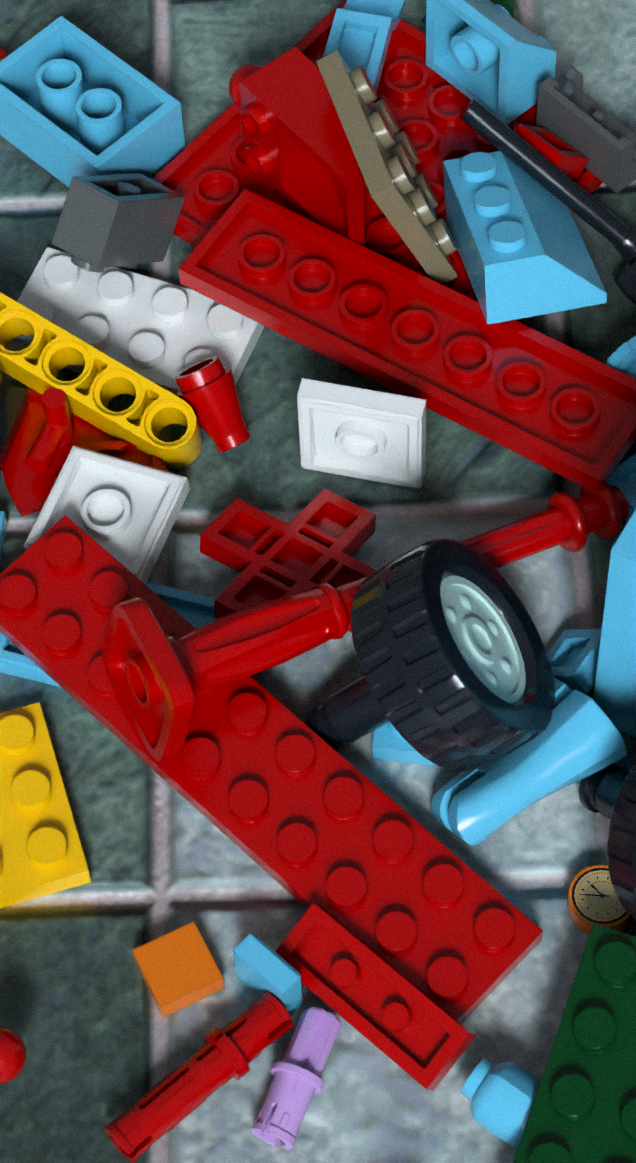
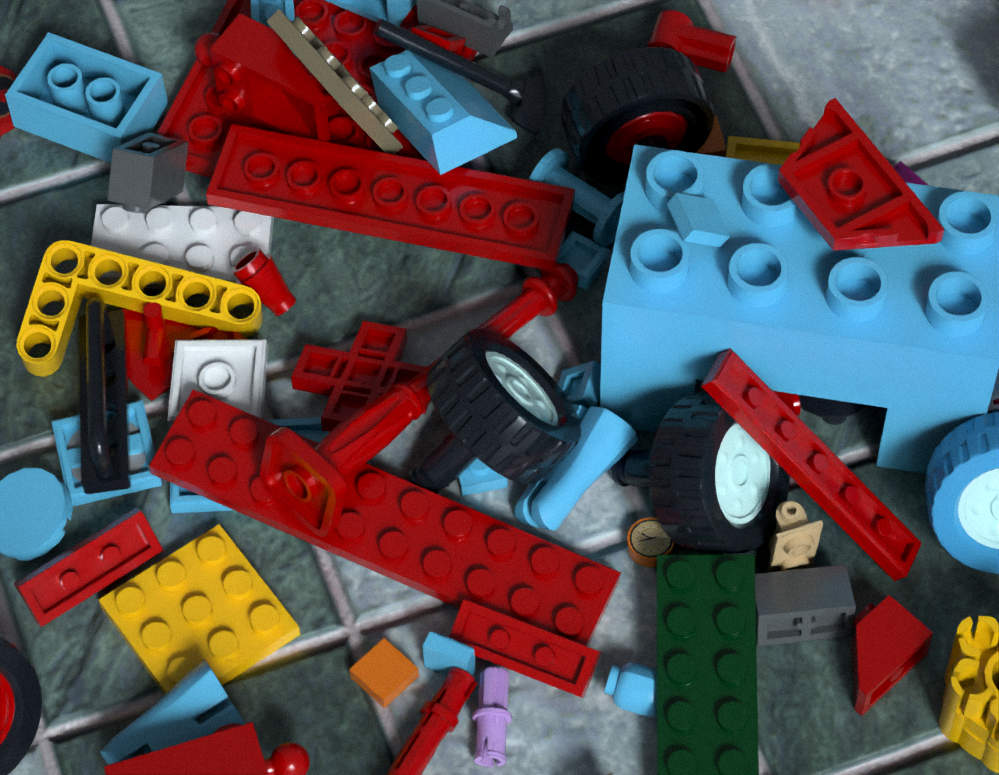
camera: 20 degrees left, 0 degrees up
(362, 433) = (379, 274): white tile -> none

